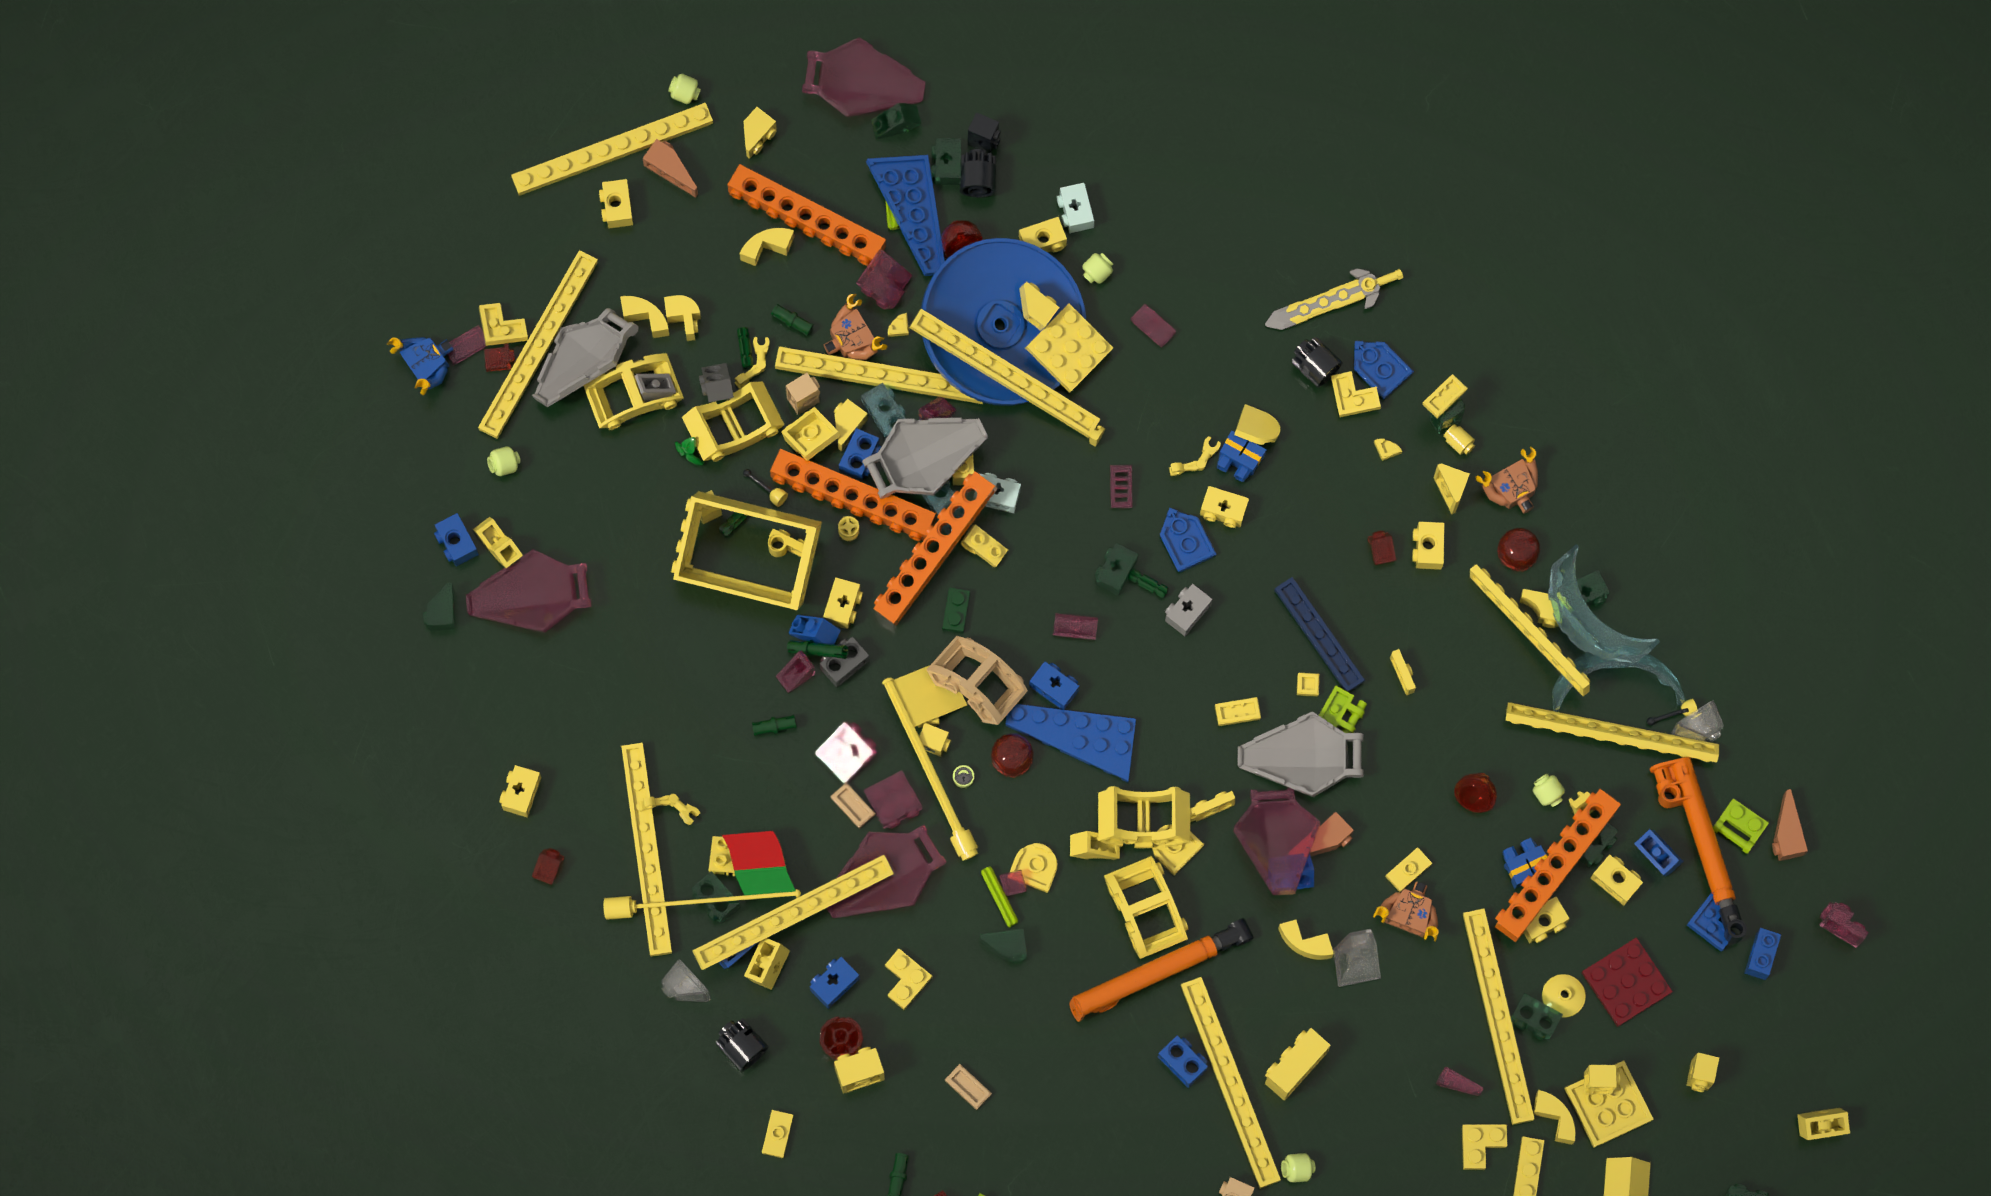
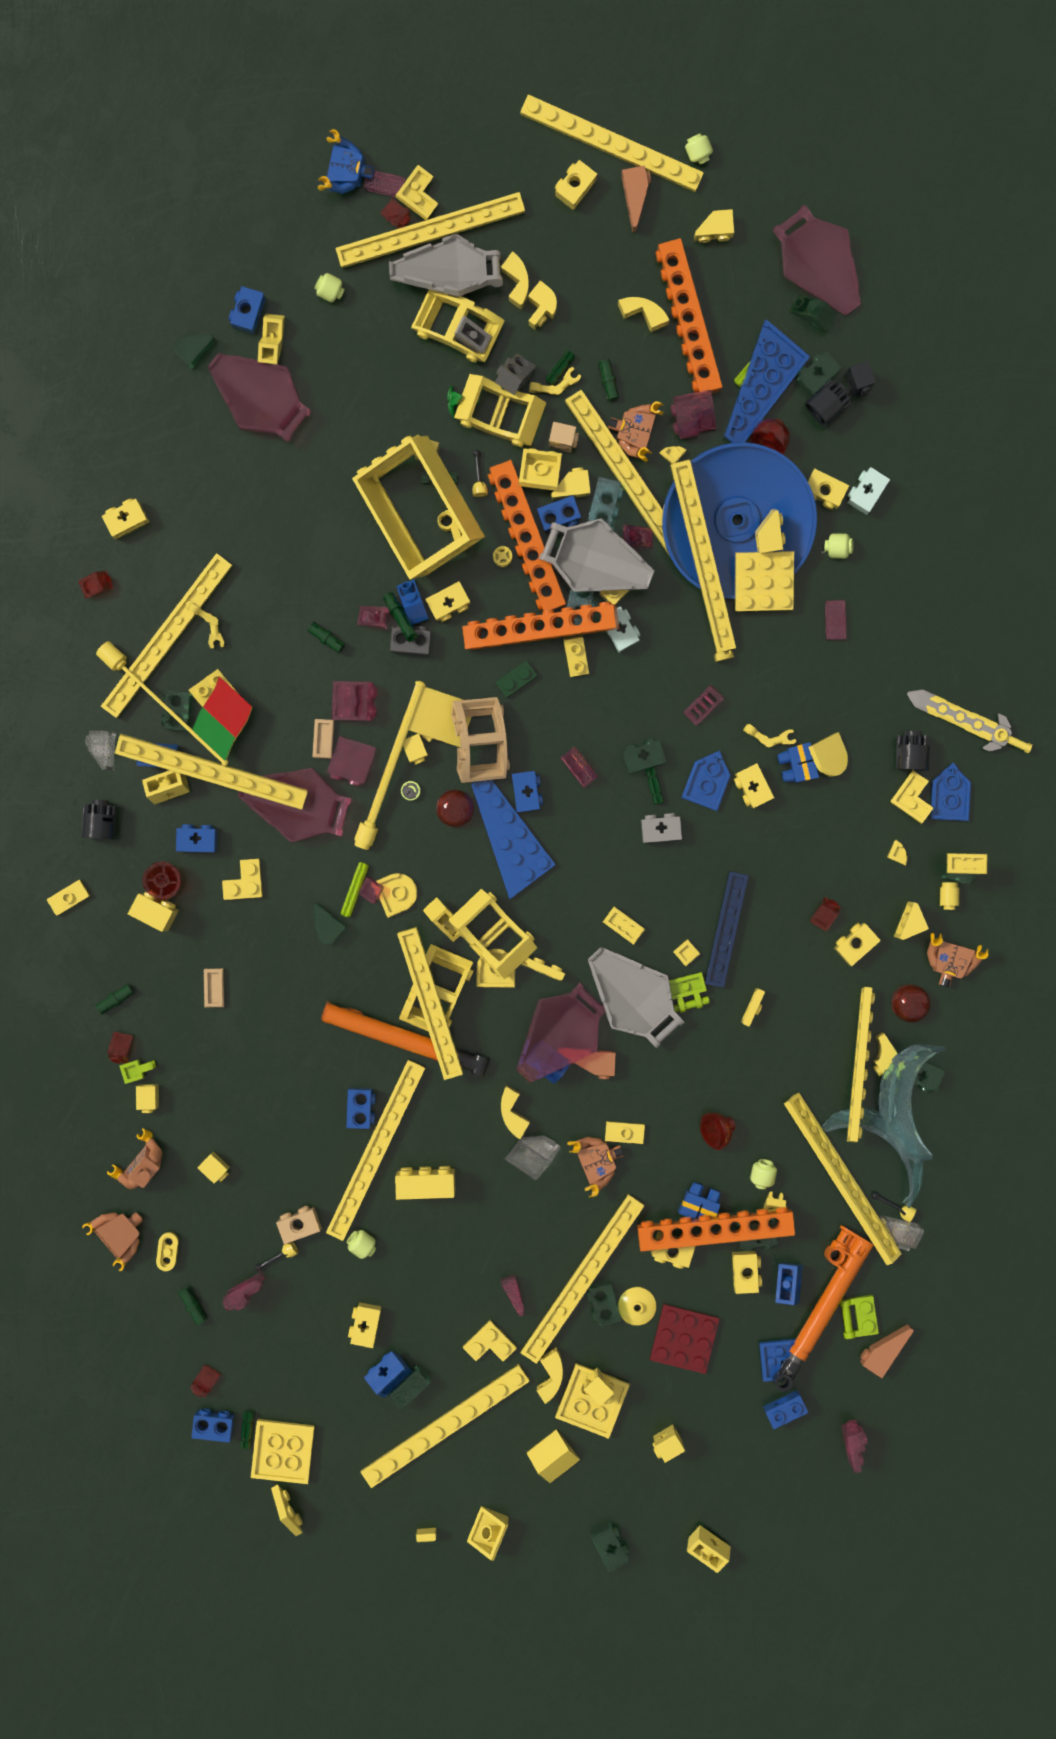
camera: 50 degrees right, 15 degrees up
(1153, 914) = (430, 1003): none -> light yellow plate

